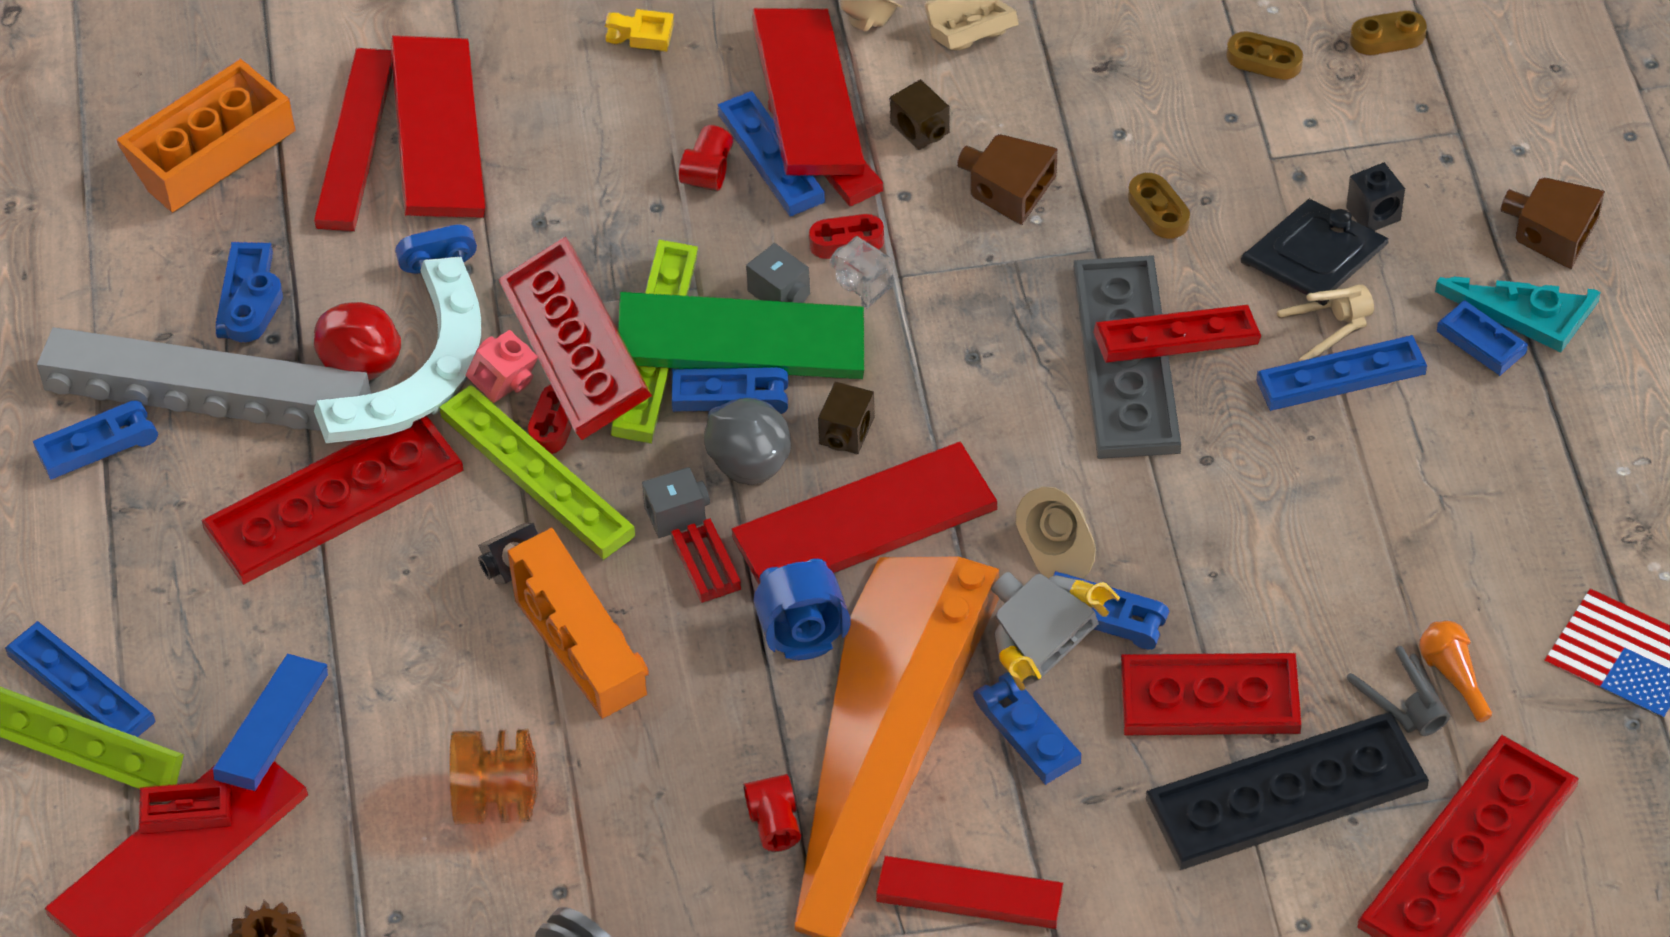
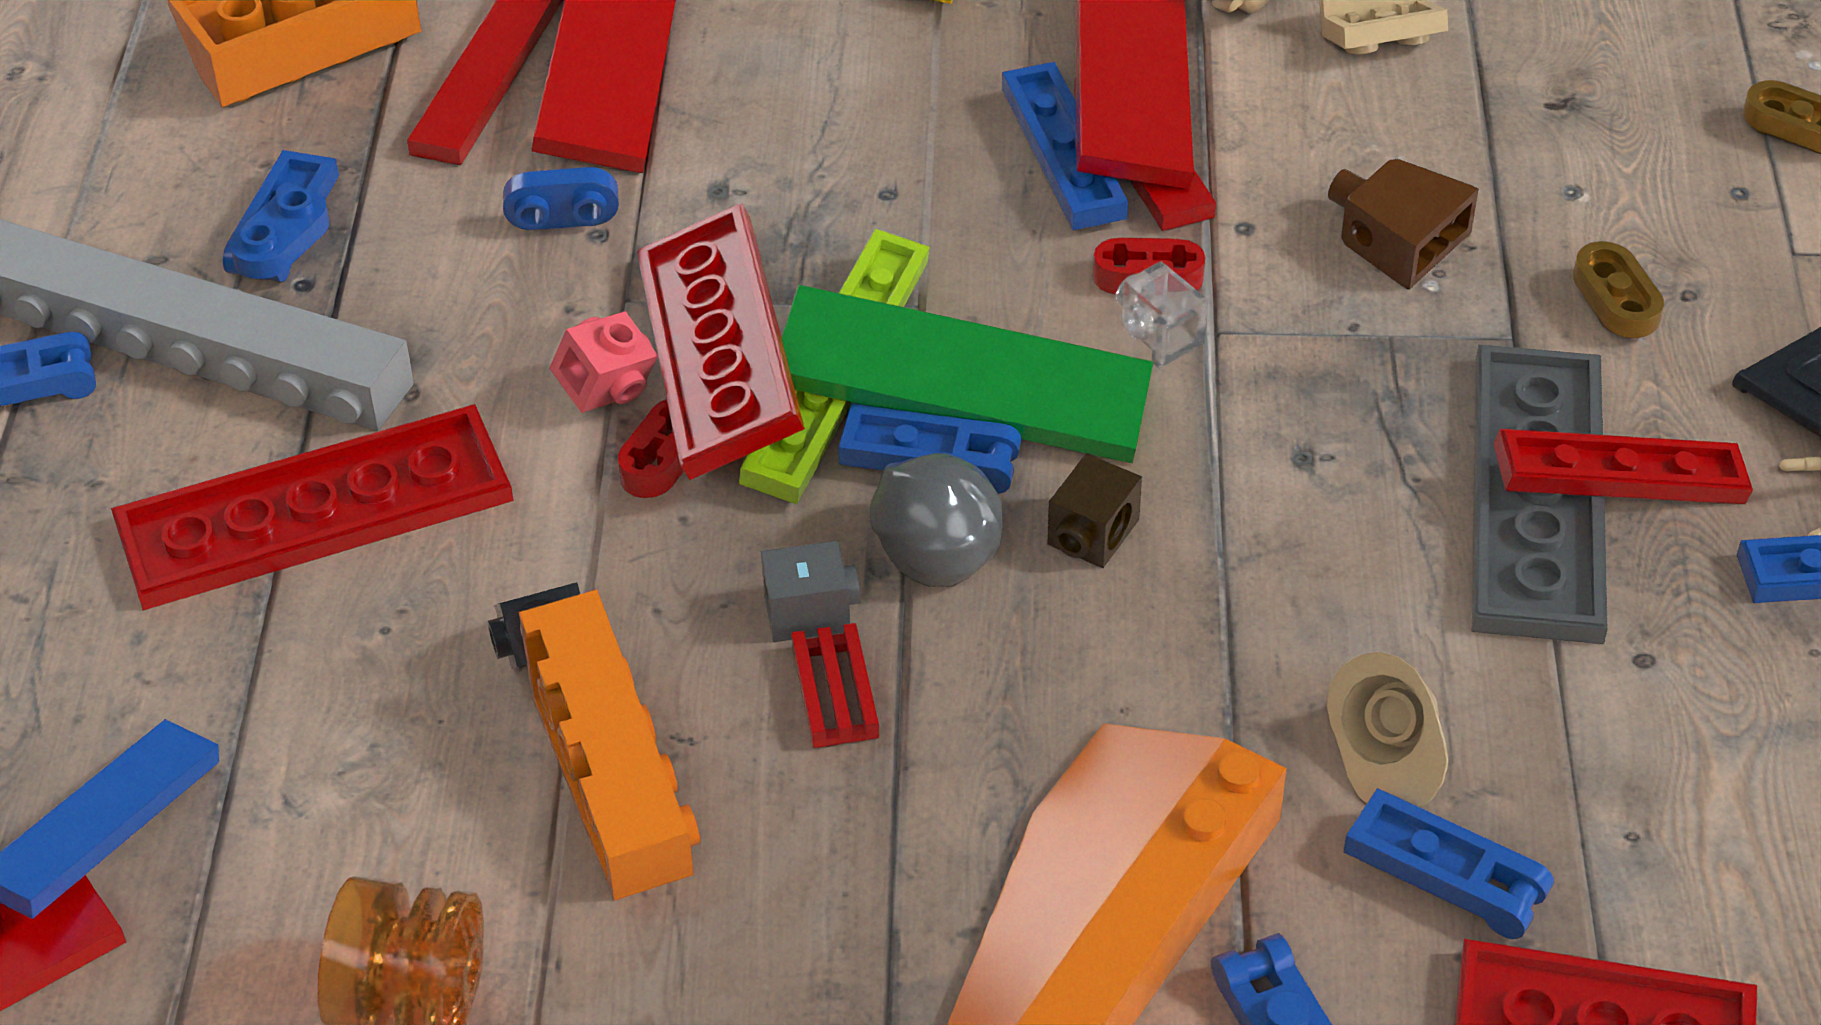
camera: 10 degrees right, 5 degrees down
(357, 339) = (407, 293): red piece -> none
(436, 380) = (486, 378): light aqua plate -> none
(537, 472) = (618, 520): lime plate -> none
(707, 162) = (972, 141): red piece -> none
(778, 276) = (1036, 301): dark grey brick -> none
(801, 609) = (960, 780): blue brick -> none
(870, 514) = (1091, 663): red tile -> none
(920, 114) = (1286, 123): dark brown brick -> none
(1044, 621) = (1347, 863): light grey torso -> none

